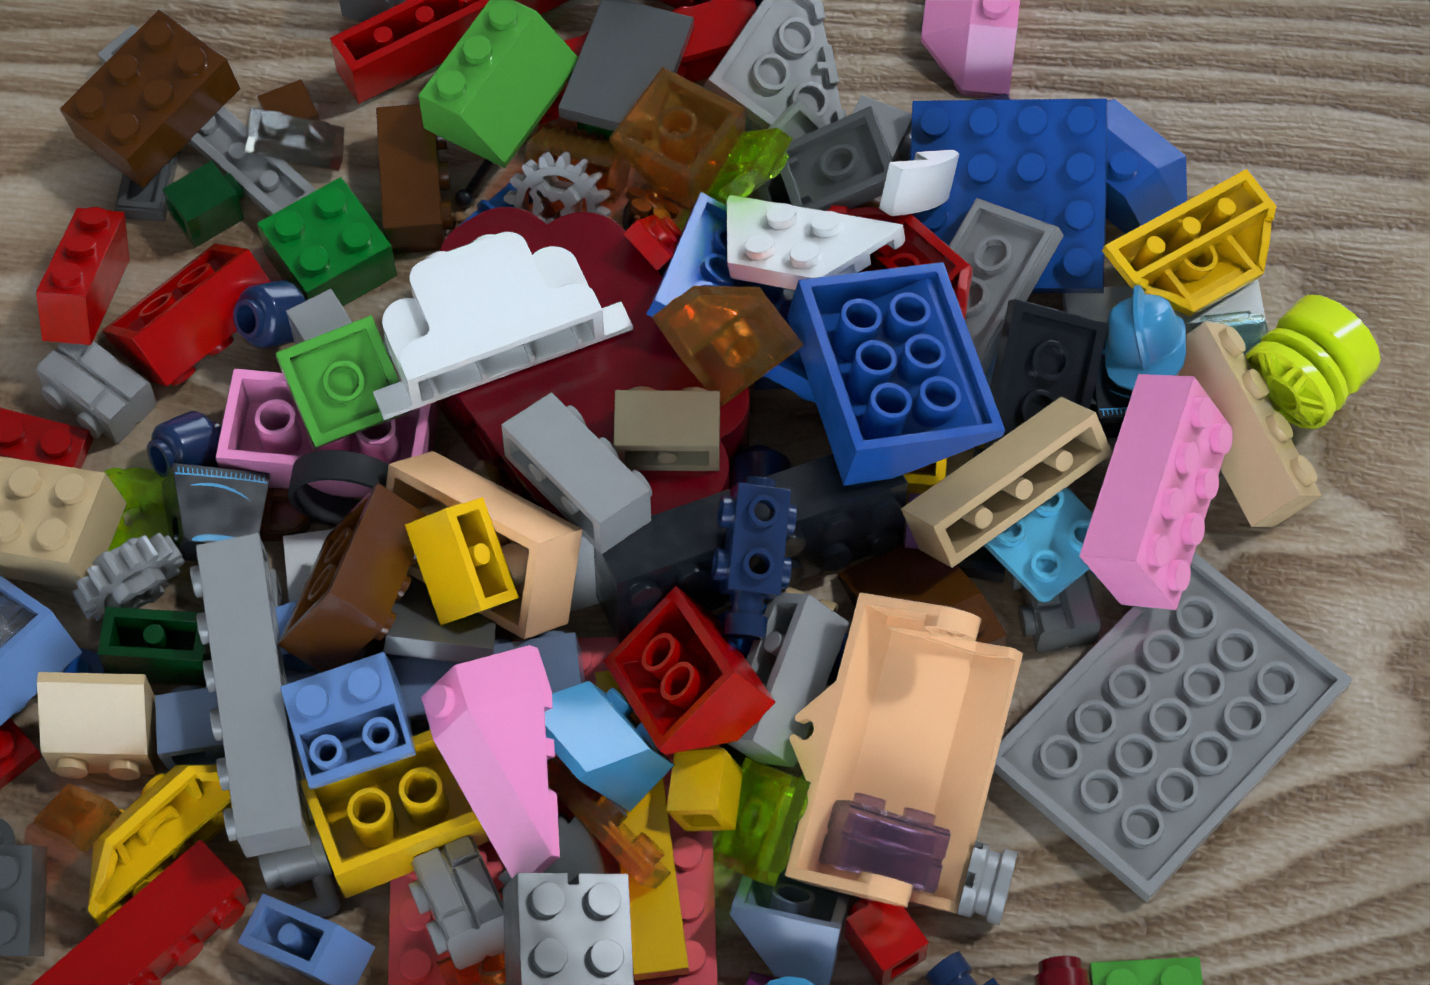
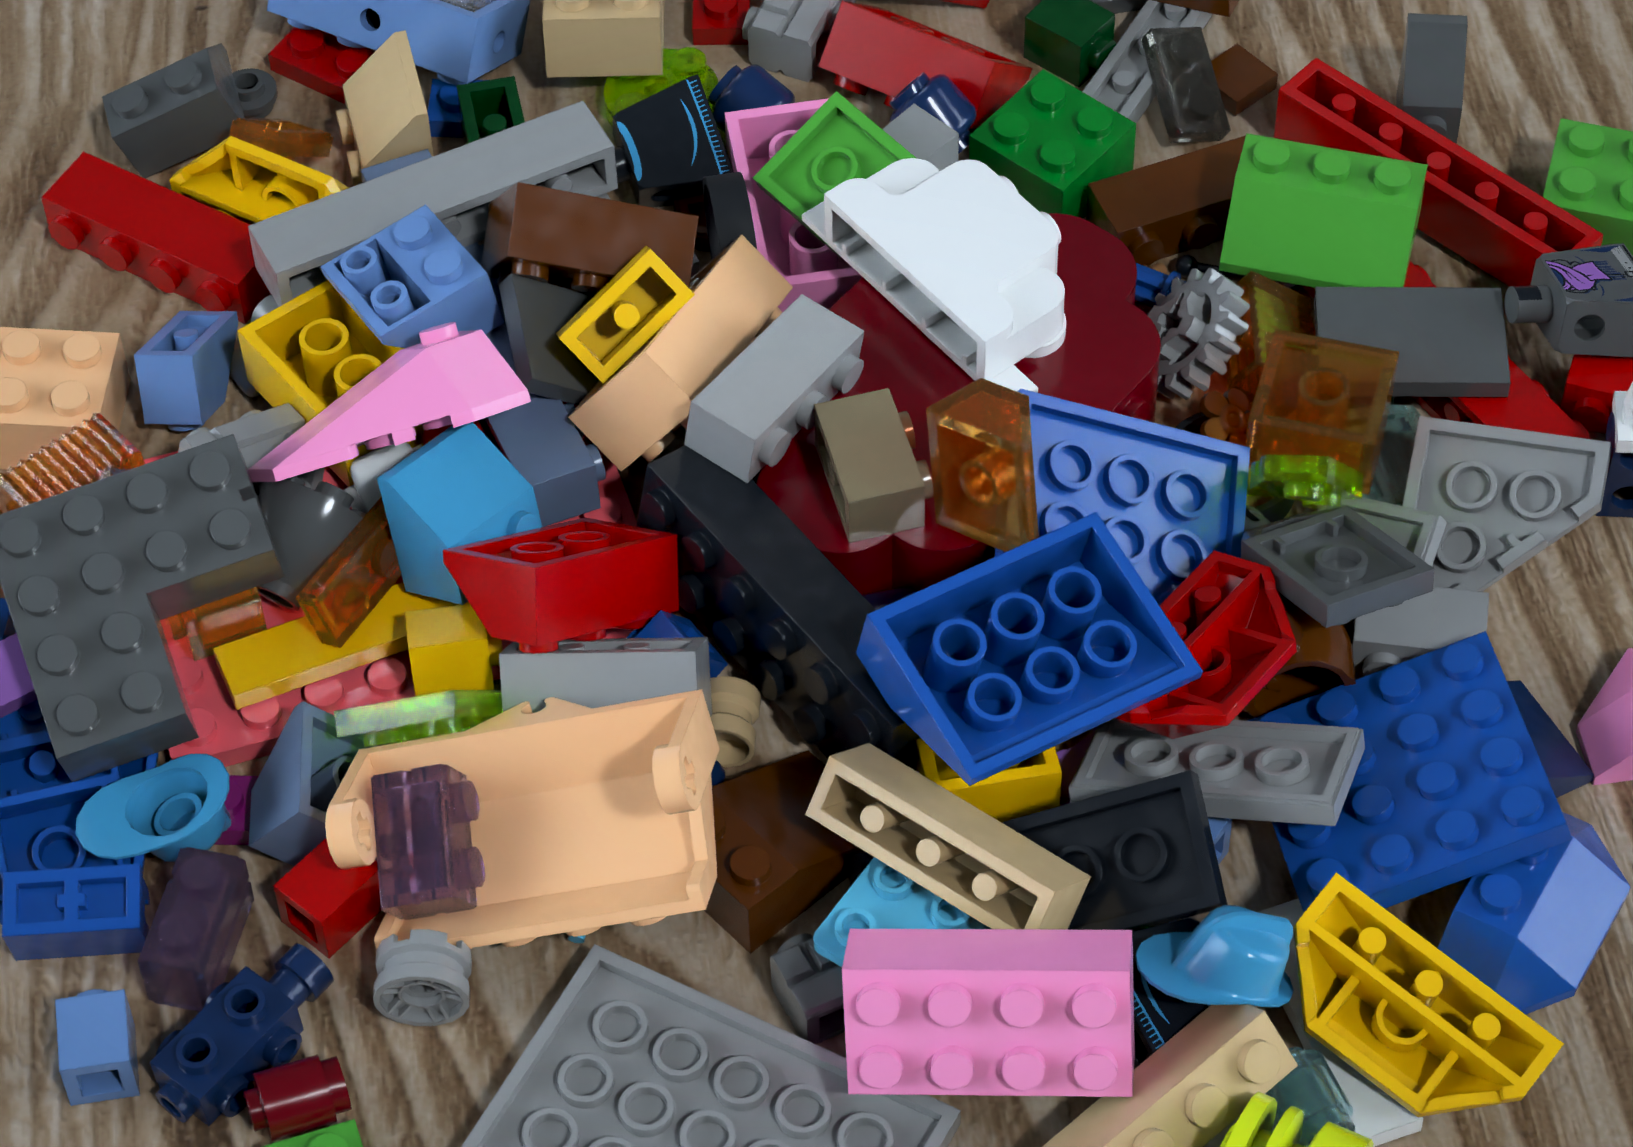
camera: 75 degrees right, 10 degrees down
(128, 575) = (557, 78): light grey gear -> none
(654, 239) = (1141, 393): red plate -> none
(752, 537) = (735, 582): dark blue brick -> none
(791, 243) = (1188, 535): white wing -> none
(919, 183) = (1332, 646): white slope -> none

